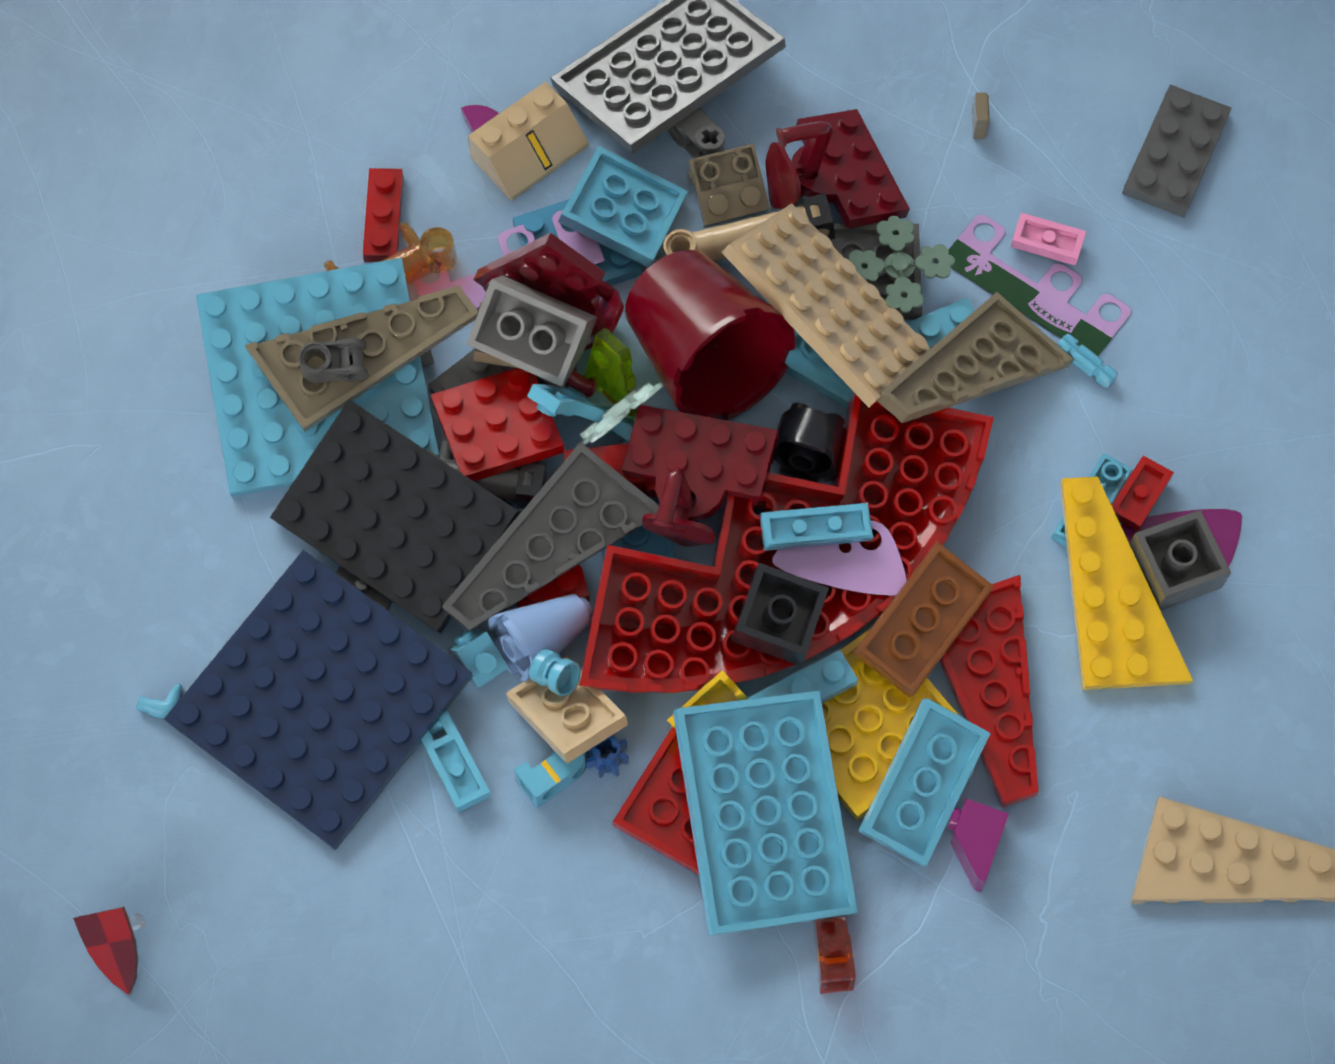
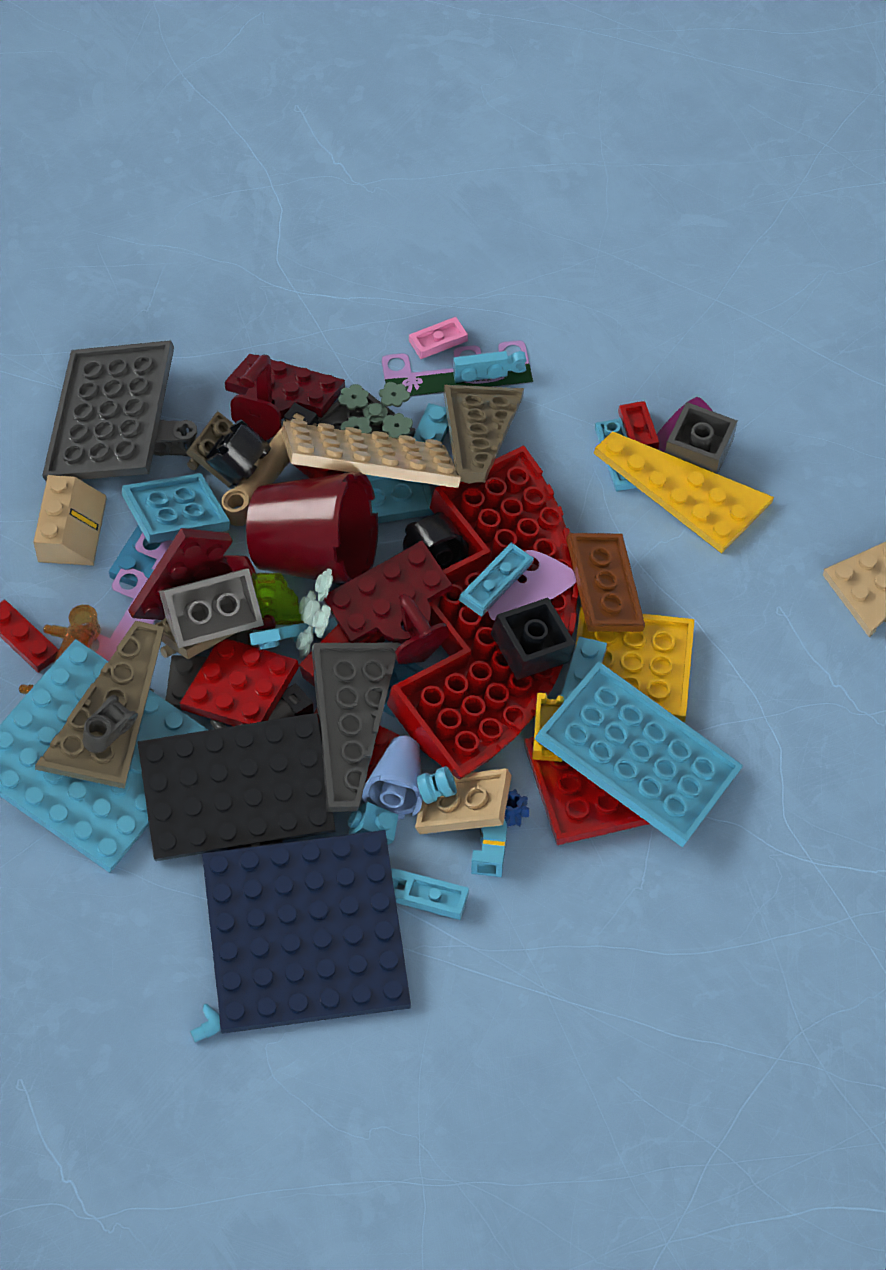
camera: 45 degrees left, 10 degrees down
(112, 944) = (344, 1179): shield -> none
(477, 115) = (21, 534): magenta tile -> none
(722, 199) = (237, 452): none -> black brick
(834, 955) = (756, 797): clear red leg -> none
(924, 782) = (702, 665): medium azure plate -> none
(976, 838) = (761, 672): magenta slope -> none
(980, 115) = (326, 302): dark tan tile -> none
(993, 689) = (678, 590): red wing -> none
(1061, 307) = (487, 366): none -> medium azure plate
(1088, 361) = (533, 383): medium azure axle -> none
(1176, 151) = (453, 240): dark grey plate -> none

